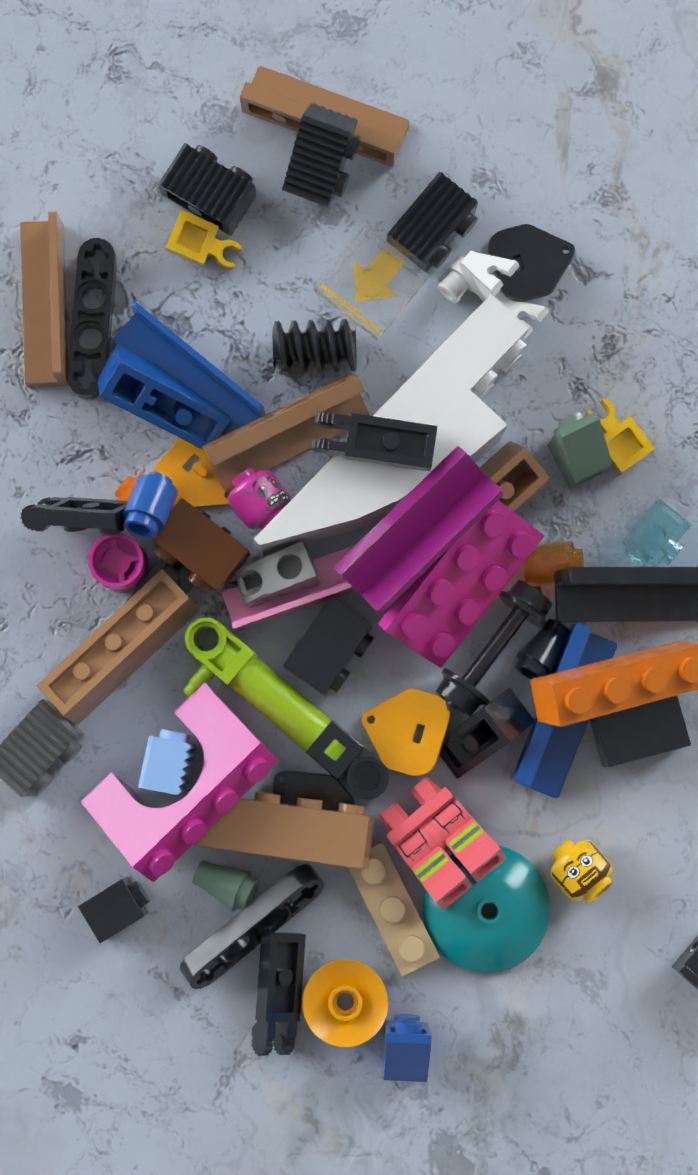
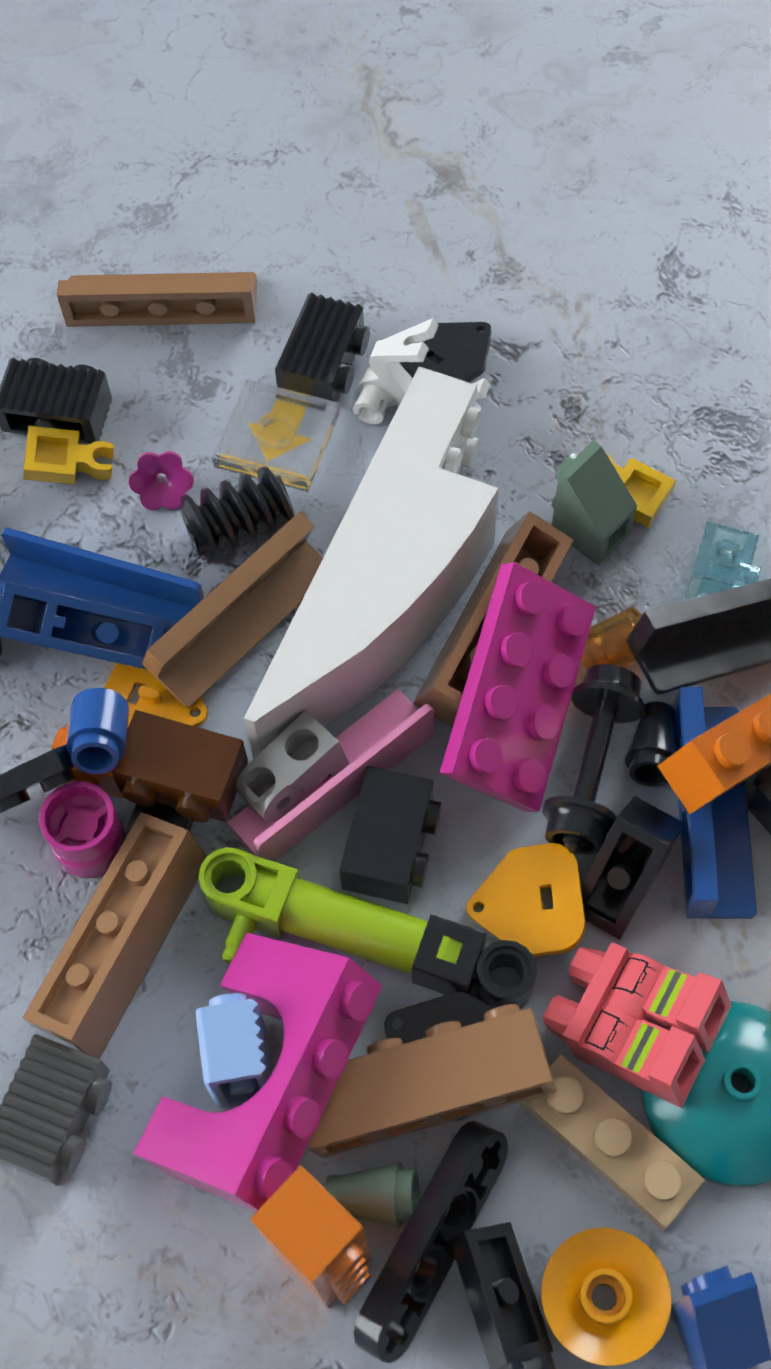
camera: 15 degrees left, 20 degrees down
(115, 908) = (232, 1289): black brick -> none
(172, 917) = (315, 1238): none -> orange brick
(257, 497) = (227, 692): dark pink head -> none
(267, 294) = (160, 490): none -> dark pink plant
(319, 155) = (169, 319): black brick -> none
(379, 440) = (350, 549): black hinge -> none
(419, 530) = (442, 637): magenta panel -> none

